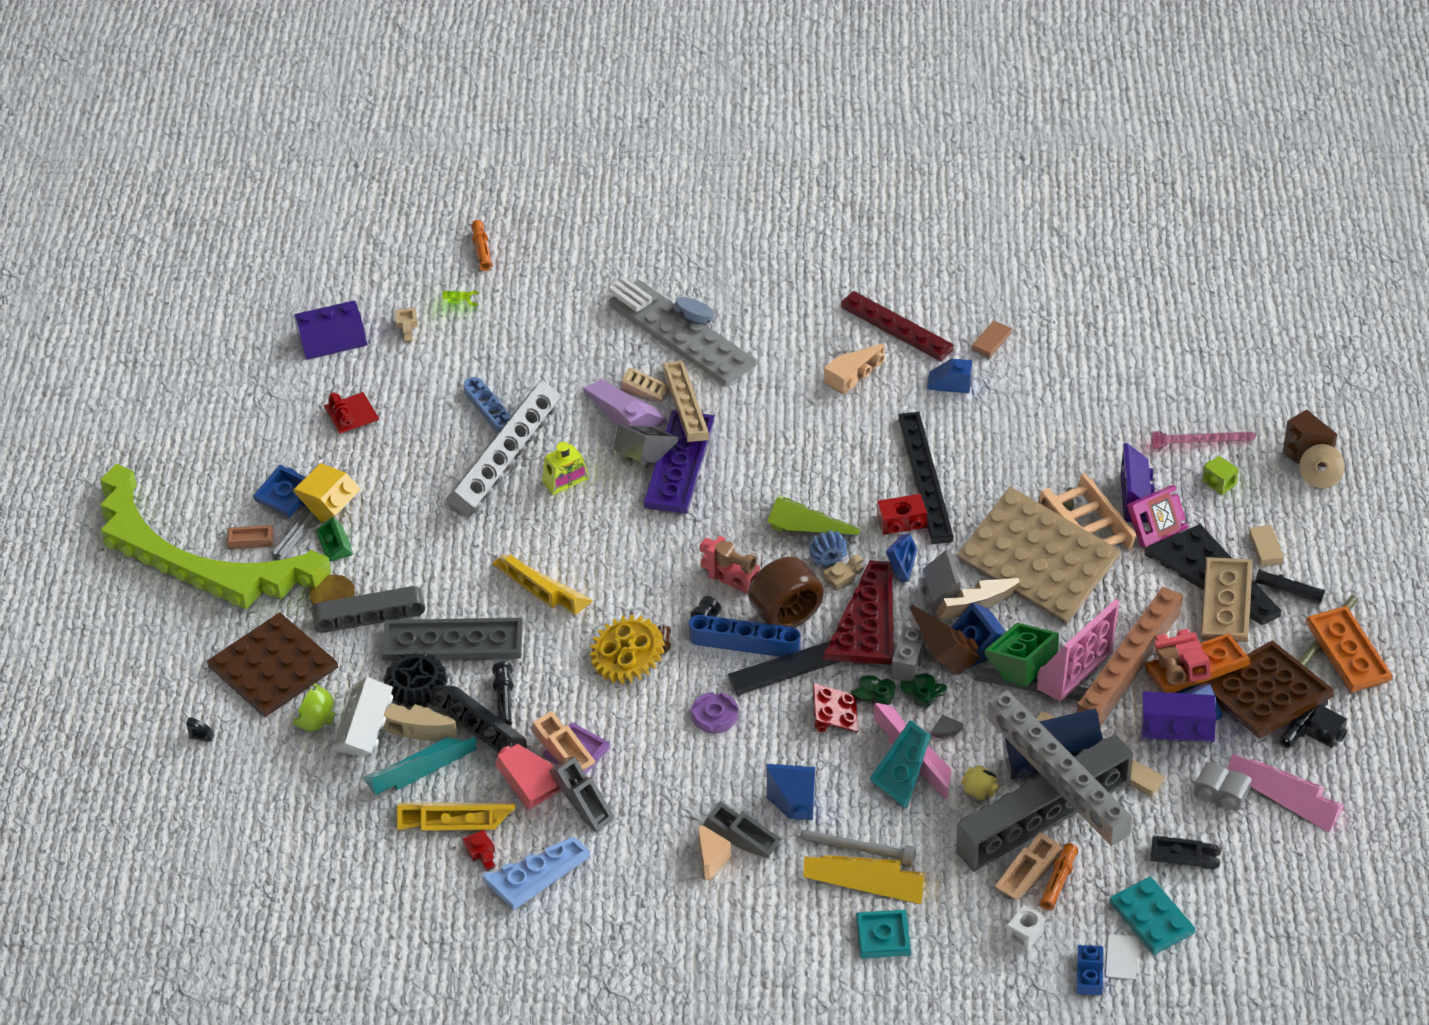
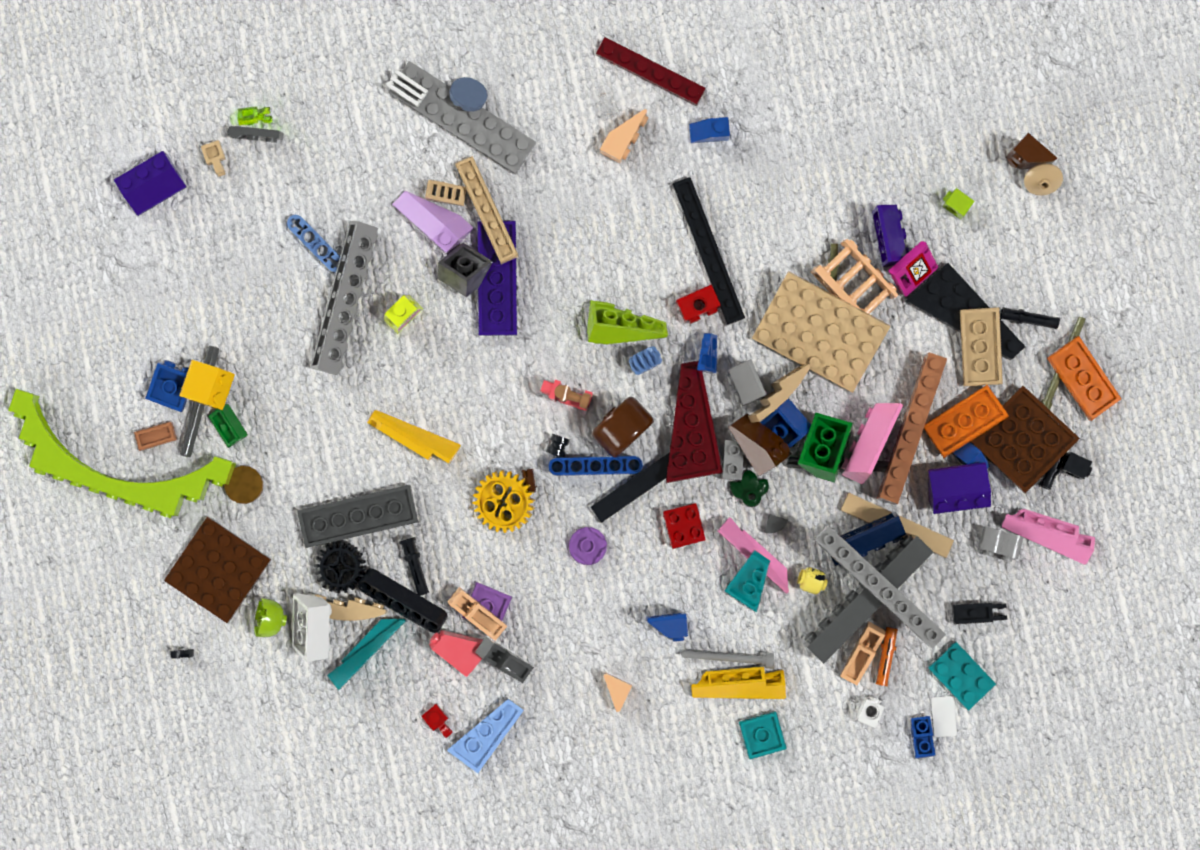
camera: 10 degrees left, 40 degrees up
(350, 411) = (197, 275): red hinge -> none
(368, 609) = (279, 499): dark grey beam -> none
(452, 815) = (406, 693): yellow wedge -> none
(457, 309) = (255, 133): none -> dark grey hinge
(480, 240) = (251, 36): orange pin -> none
(742, 830) = (636, 664): dark grey slope -> none
(841, 574) = (659, 378): tan plate -> none
(875, 689) = (709, 496): dark green plate -> none
(991, 339) = (737, 72): nougat tile -> none
(1161, 439) = (901, 170): clear pink piece -> none
(1183, 650) = (954, 420): coral hips -> none
(1266, 545) = (1004, 273): tan tile -> none

